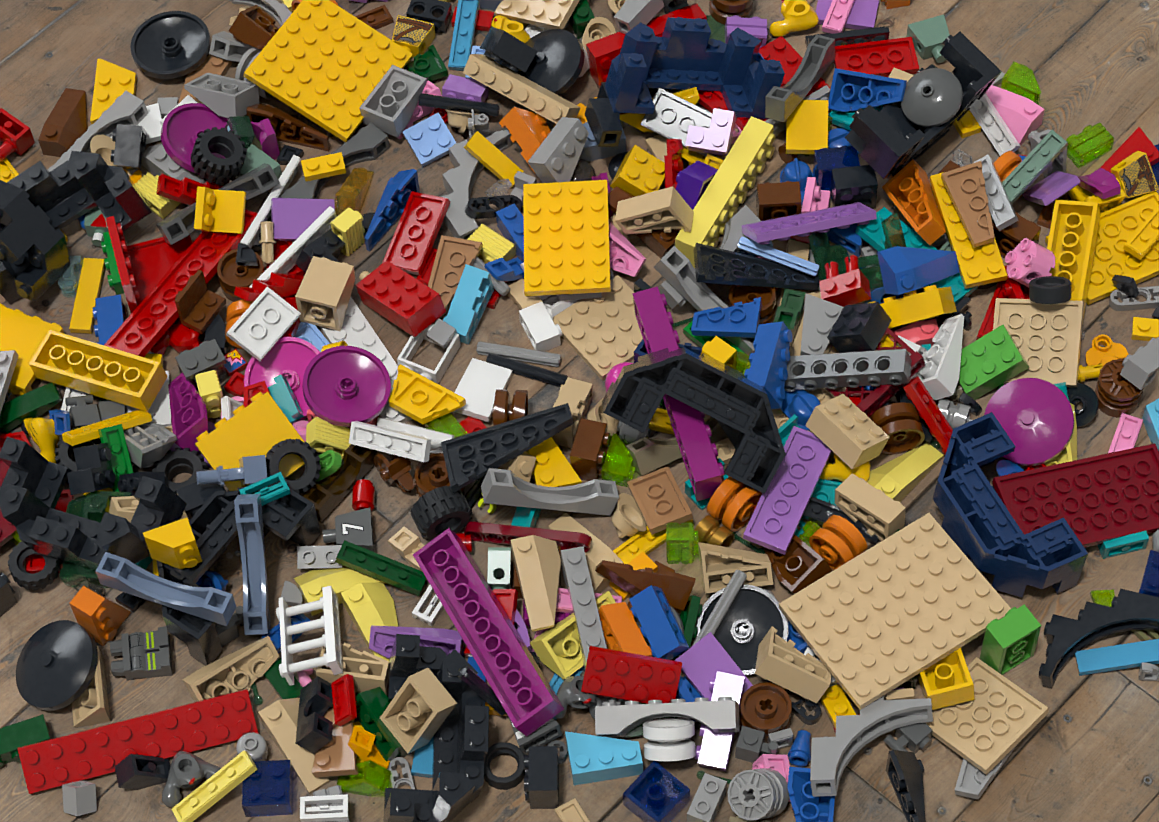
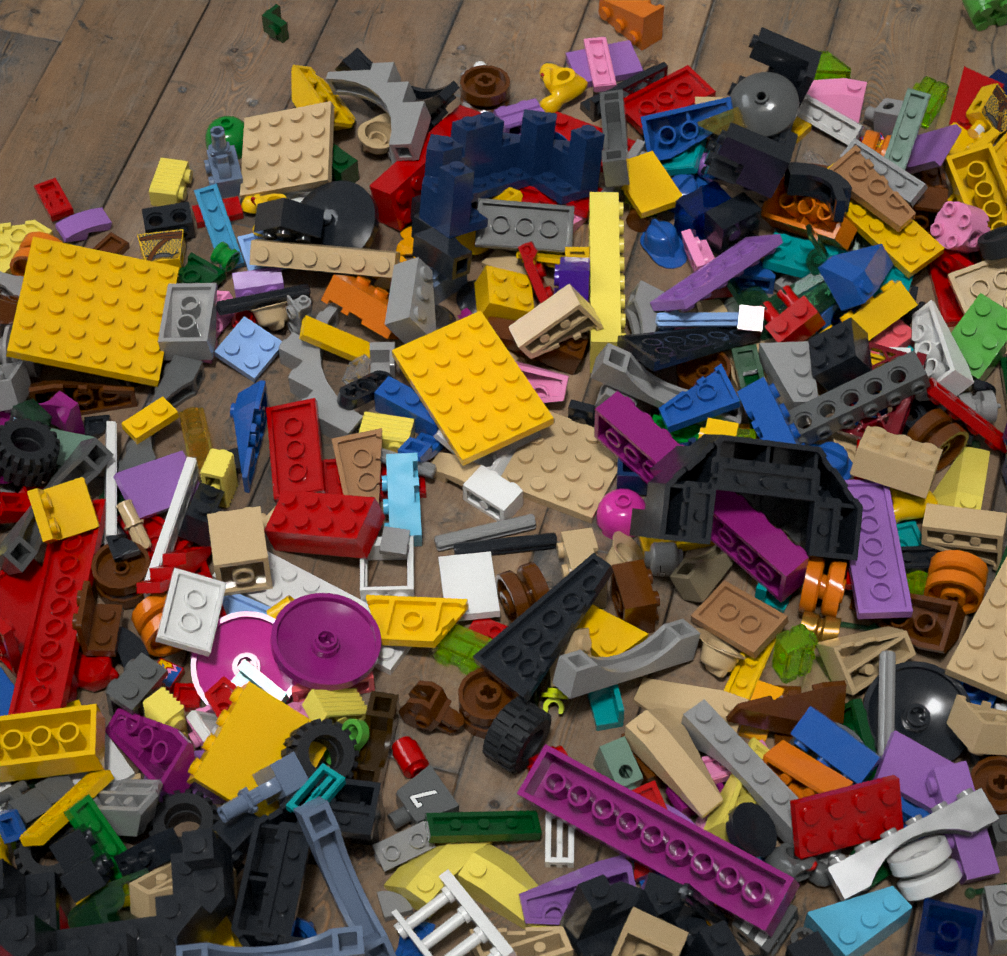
camera: 30 degrees left, 5 degrees down
(173, 544) = (253, 900): yellow slope -> none
(398, 438) = (422, 673): white fence -> none
(406, 545) = (496, 791): tan slope -> none
(452, 58) = (225, 256): none -> green wheel
(505, 533) = (614, 722): dark red beam -> none
(560, 656) = (751, 830): none -> black tile
(597, 29) = (366, 172): tan piece -> none
(618, 463) = (674, 600): clear neon green slope -> none
(716, 139) = (568, 227): brick -> none
(778, 200) = (667, 264): reddish brown brick -> none
(812, 270) = (750, 318): none -> tile
(891, 100) = (722, 121): none -> clear yellow tile
(929, 36) = (708, 59): sand green torso -> none
(931, 181) = (819, 183): none -> black arch
(1100, 183) = (974, 128): magenta slope -> none

